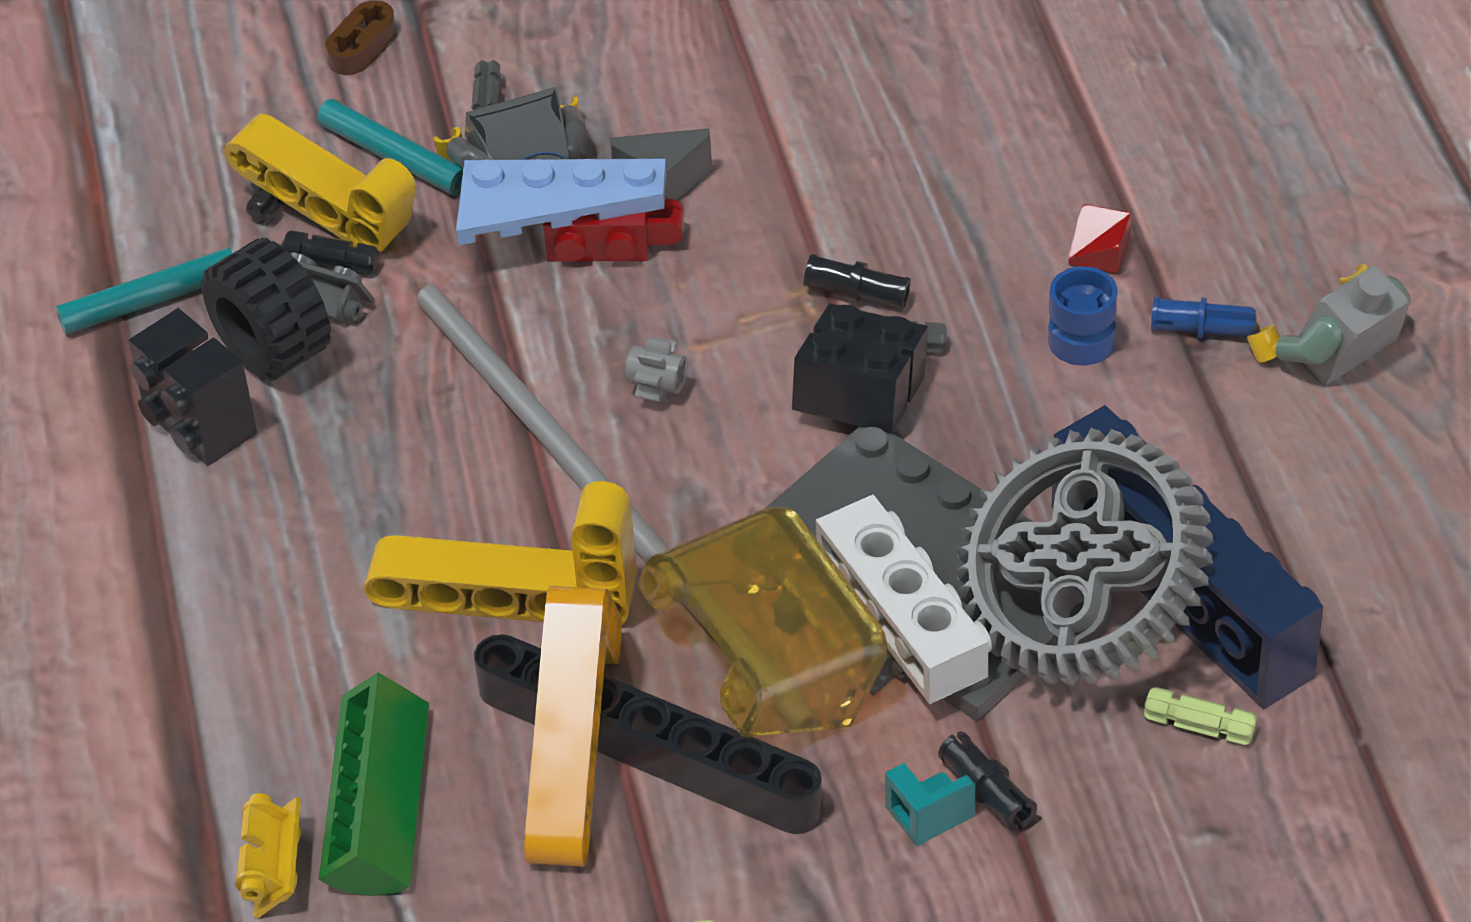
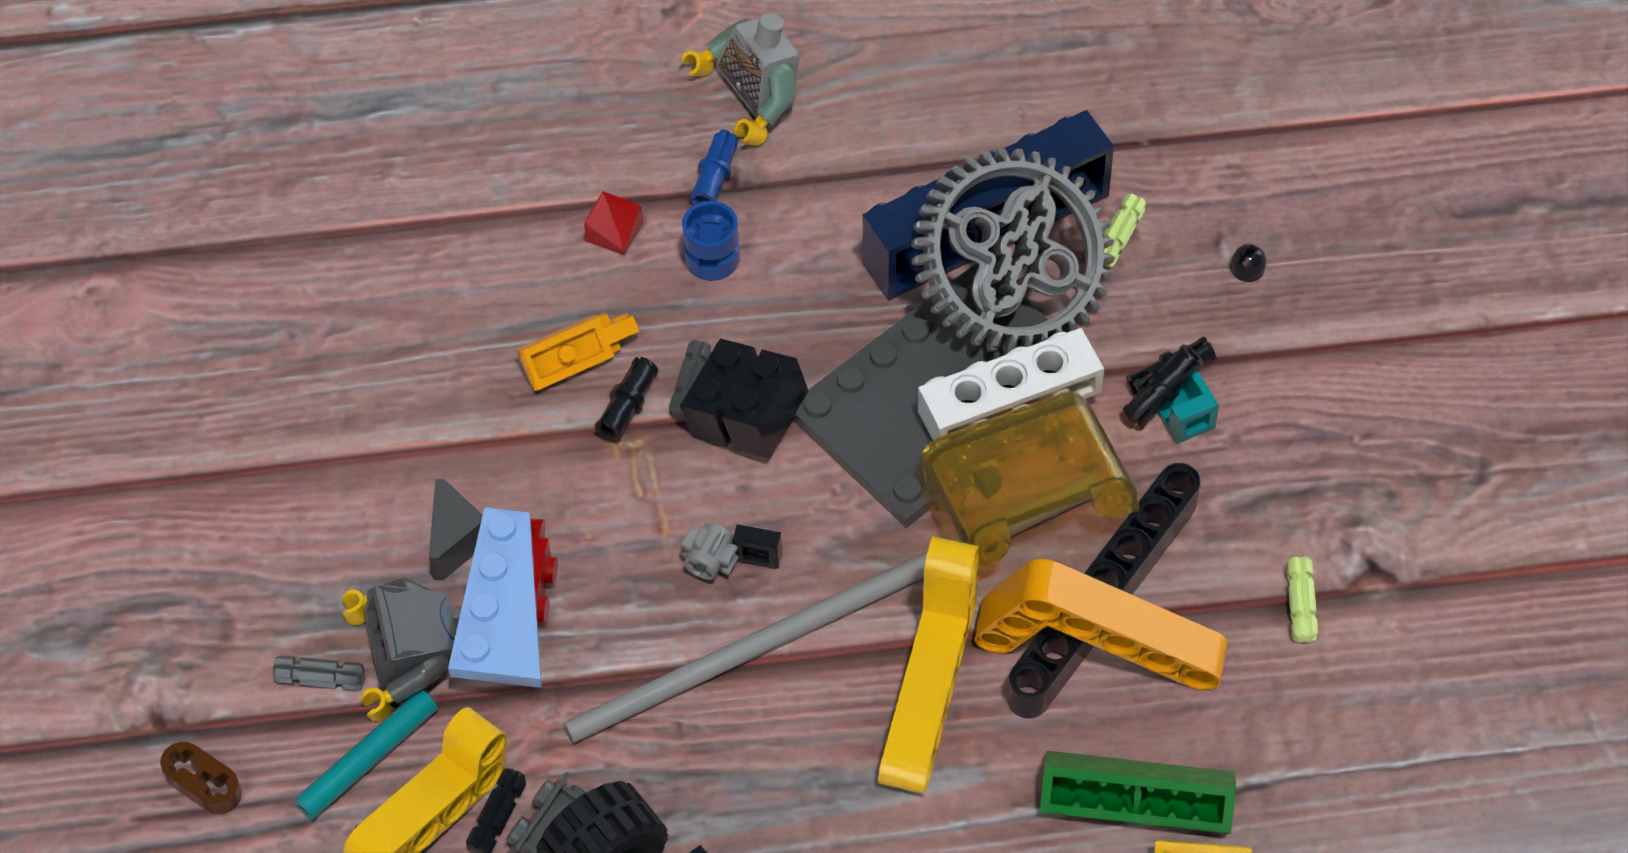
camera: 85 degrees left, 10 degrees up
(669, 411) = (758, 546): none -> black tile
(916, 228) = (574, 348): none -> light orange hinge
(941, 756) = (1163, 385): none -> black pin
(1174, 862) = (1255, 267): none -> black hinge

